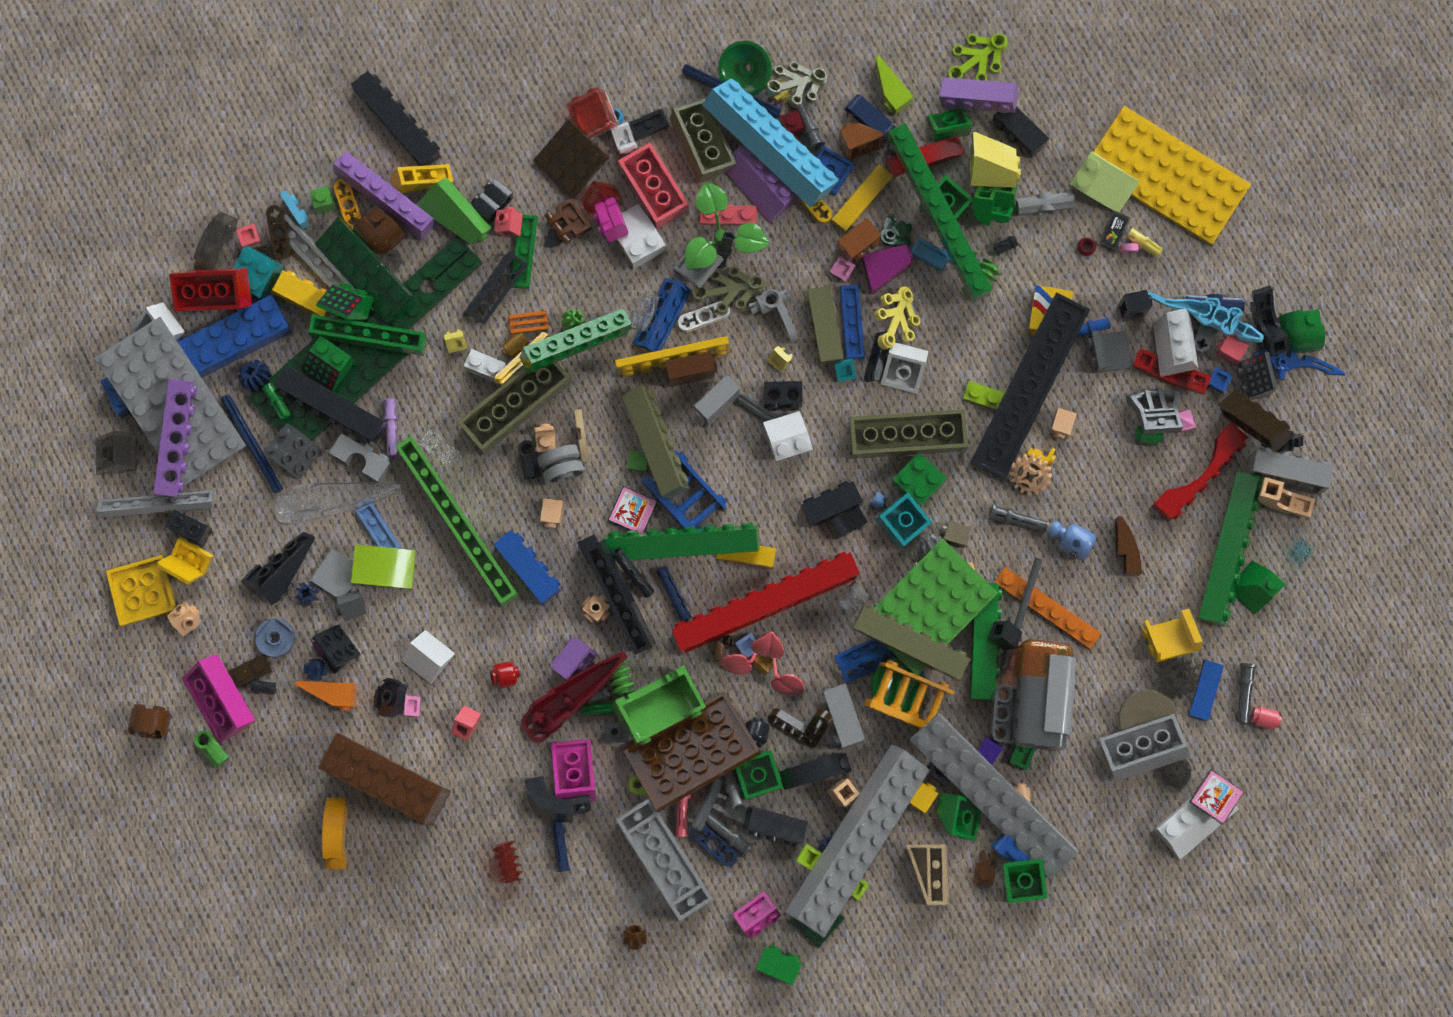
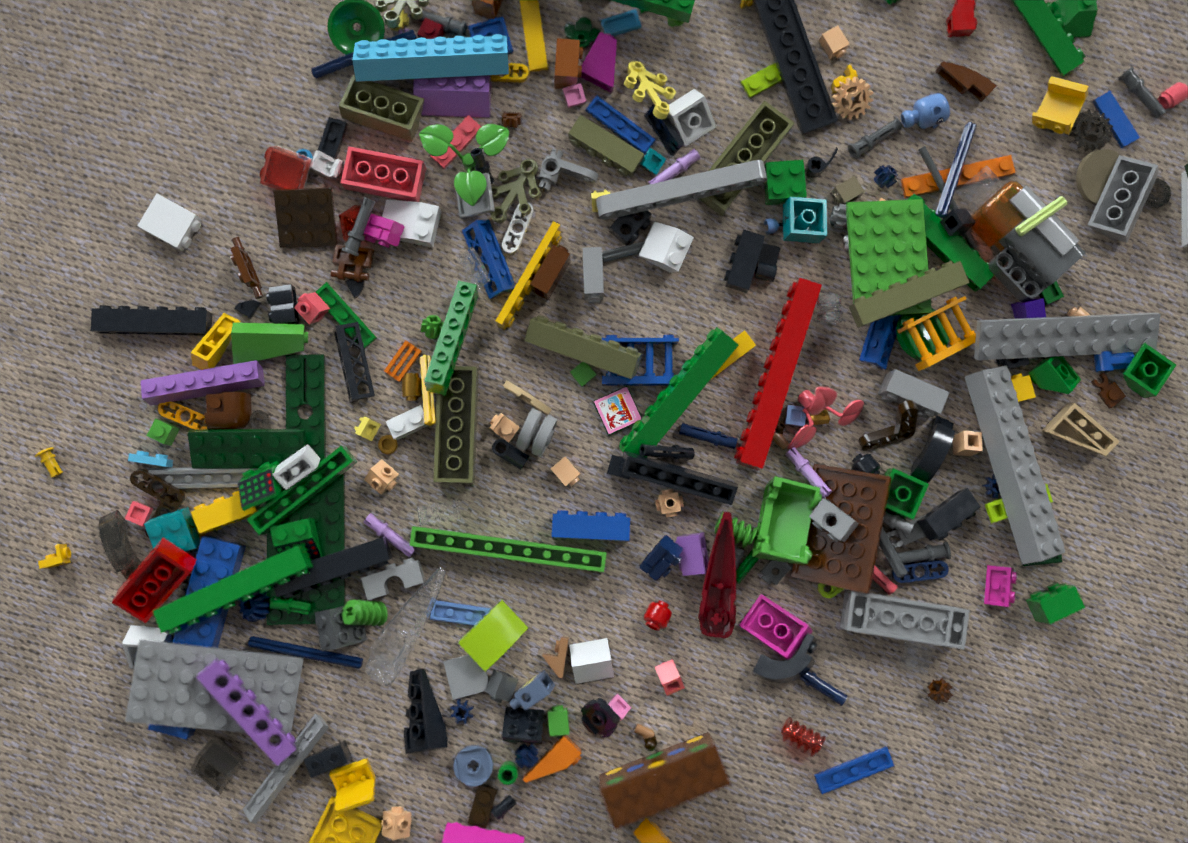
camera: 50 degrees left, 5 degrees up
(165, 209) = (61, 557): none -> yellow bracket
(230, 141) = (49, 461): none -> yellow pin
(253, 349) = (232, 589): none -> green brick
(286, 664) = (508, 779): none -> green brick
(318, 459) = (364, 613): none -> bright green piece
(362, 670) = (558, 721): none -> bright green brick
(367, 631) = (537, 688): none -> sand blue torso
(381, 315) = (296, 467): none -> white brick
(406, 632) = (557, 662): none -> medium nougat slope
(409, 747) = (648, 736): none -> arm
(428, 383) = (381, 477): none -> light nougat brick
(456, 367) = (387, 444): none -> pearl gold tile
(467, 178) = (248, 308): none -> black tile
(480, 68) = (170, 222): none -> white brick
(492, 155) = (247, 272): none -> reddish brown plate
(518, 925) = (854, 770): none -> blue tile
(549, 638) = (661, 557): none -> dark blue brick
(590, 206) = (356, 235): none -> dark grey pin
(695, 747) = (844, 526): none -> light grey brick
(713, 684) = (802, 465): none -> lavender pin
(781, 239) = (511, 119): none -> reddish brown plate
(837, 408) = (681, 189): none -> light grey beam
(861, 393) = (679, 166): none -> lavender pin
(957, 498) = (819, 162): none -> black panel
(994, 552) = (885, 176): none -> dark blue gear
(1047, 599) = (955, 170): none -> axle
(1050, 629) = (979, 188): none -> clear plate
(1072, 691) = (1040, 216): none -> yellowish green axle

